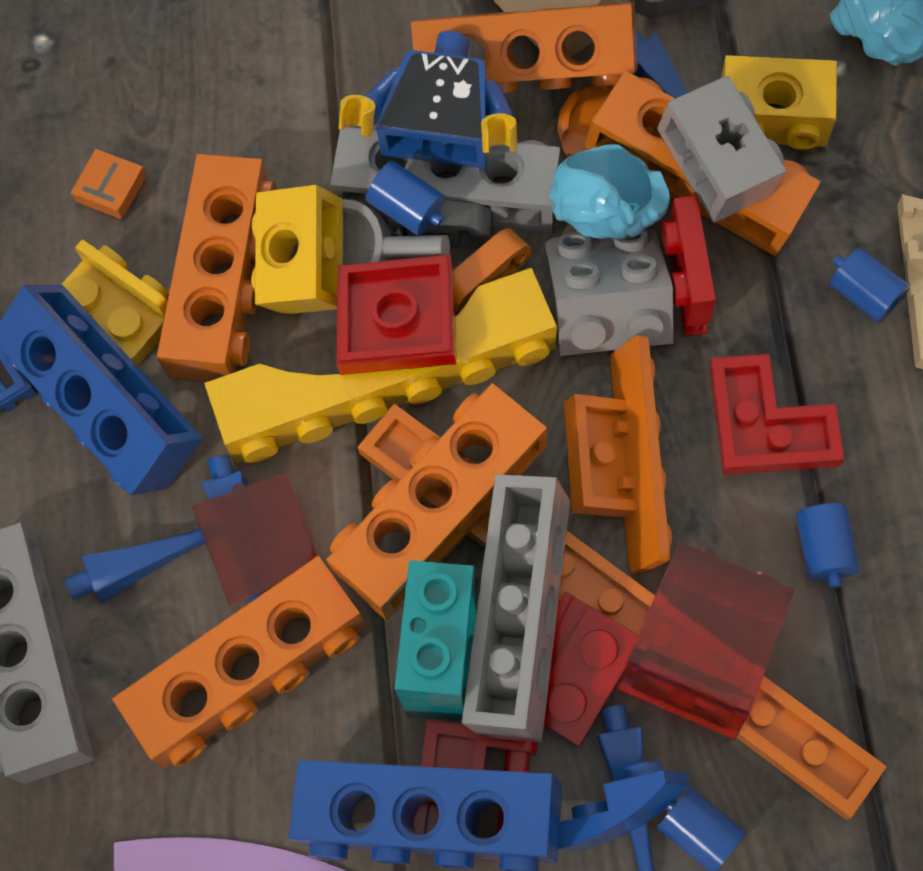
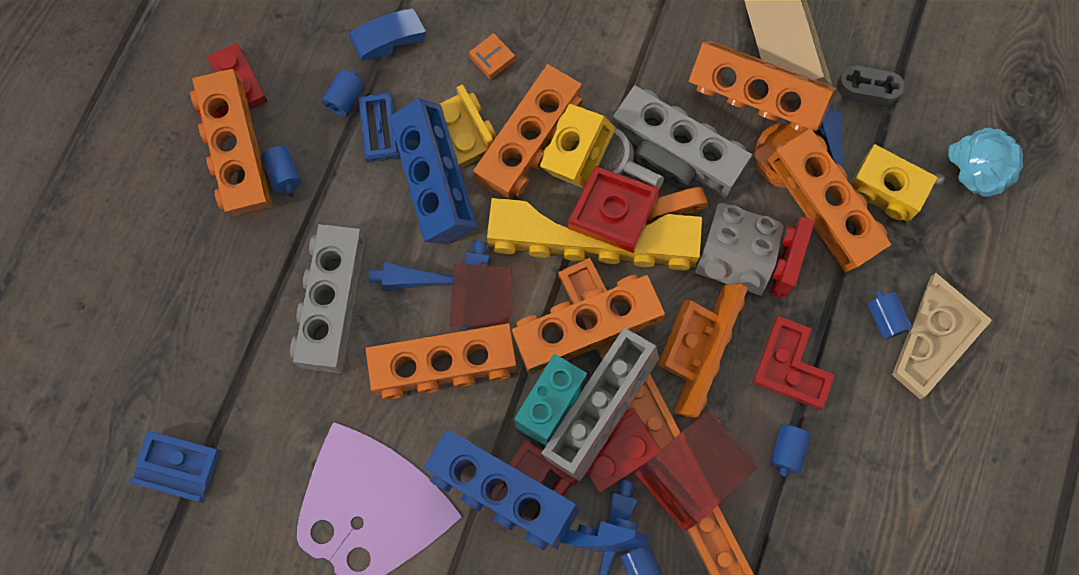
camera: 20 degrees right, 5 degrees up
(406, 198) = (650, 145): blue piece -> none
(435, 107) = (692, 100): torso -> none
(608, 193) = (765, 195): medium azure hair -> none
(721, 148) = (833, 215): light grey brick -> none

